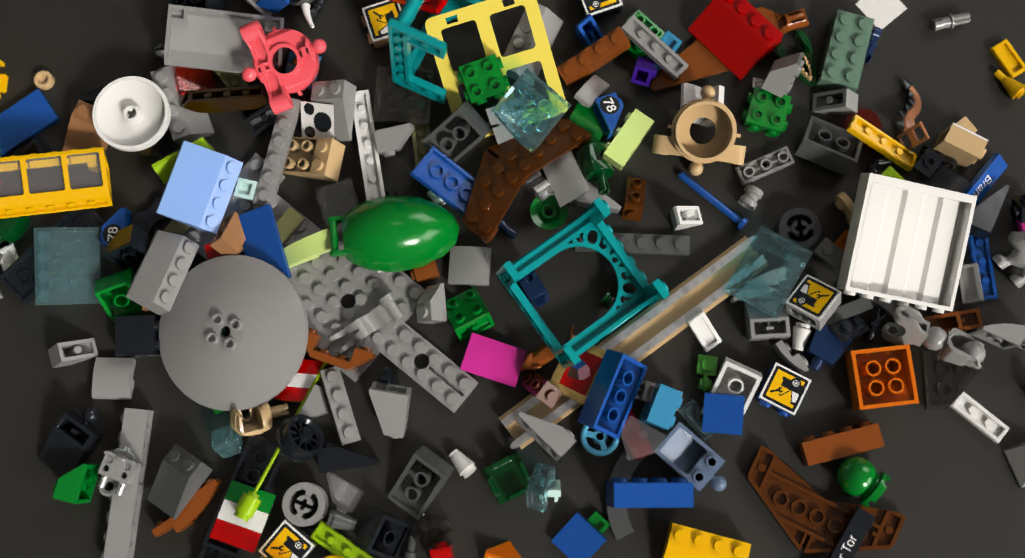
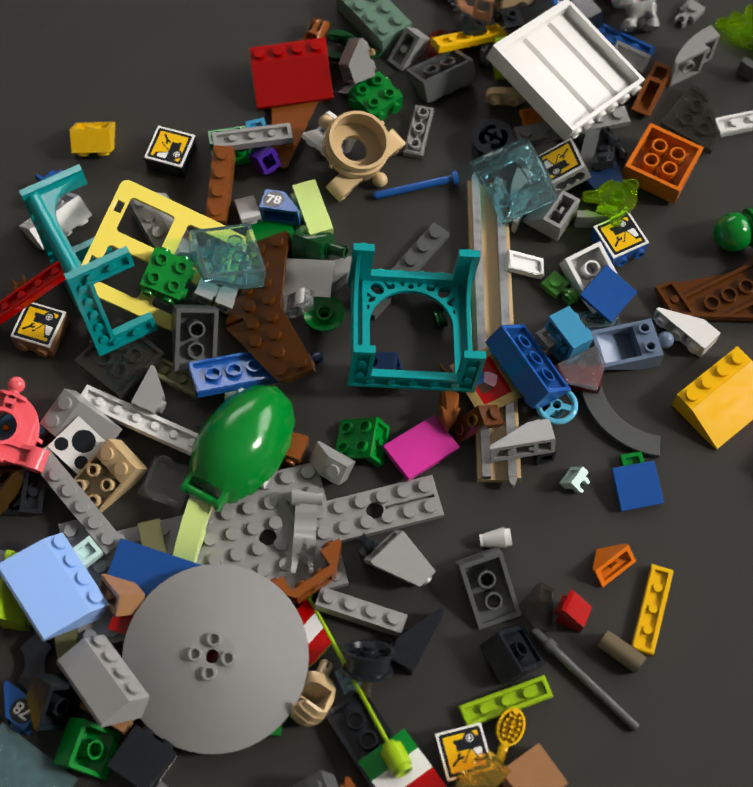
camera: 60 degrees left, 15 degrees down
(226, 441) = (316, 741): clear light blue brick -> none
(299, 519) = (421, 693): light grey wheel -> none
(315, 403) = (342, 630): light grey slope -> none
(339, 520) = (470, 687): dark grey cone -> none
(343, 493) = (447, 664): clear slope -> none
(469, 266) = (320, 409): light grey slope -> none
(507, 478) = (539, 507): dark green panel -> none
(540, 483) = (567, 483): clear light blue slope -> none
(588, 31) = (195, 178): blue slope -> none
(634, 199) = (363, 234): reddish brown bracket -> none
(649, 494) = (636, 394): blue brick -> none
(685, 217) = (414, 216): white slope -> none
(742, 499) = (689, 330): none -> white slope
(750, 197) = (438, 158): light grey wheel -> none
(800, 336) = (577, 191): white cone -> none
(813, 363) = (614, 199): none -> clear neon green tile
(840, 444) = (696, 230): dark orange brick -> none
(895, 138) = (472, 26): none -> black slope
(916, 330) = (672, 96): light grey piece -> none

